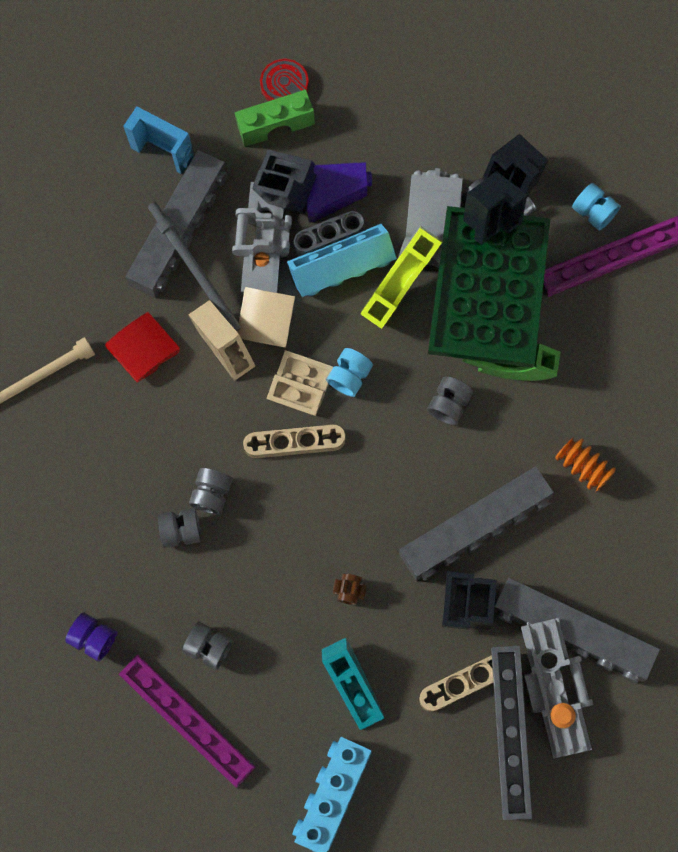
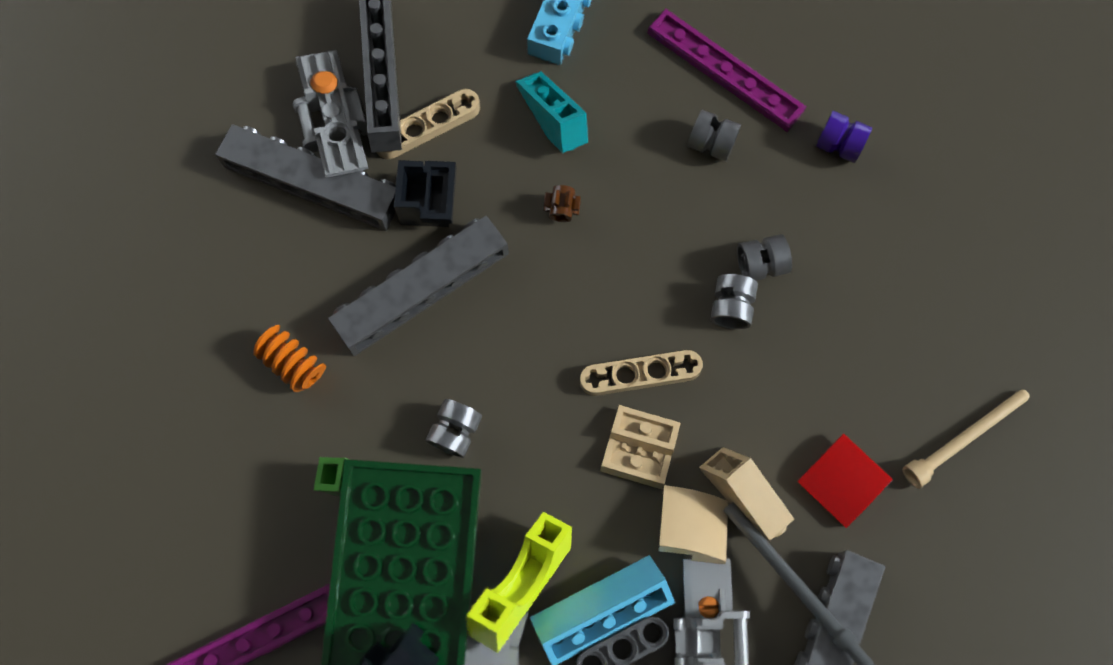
camera: 170 degrees right, 0 degrees up
(348, 375) = (580, 457): medium azure wheel -> none

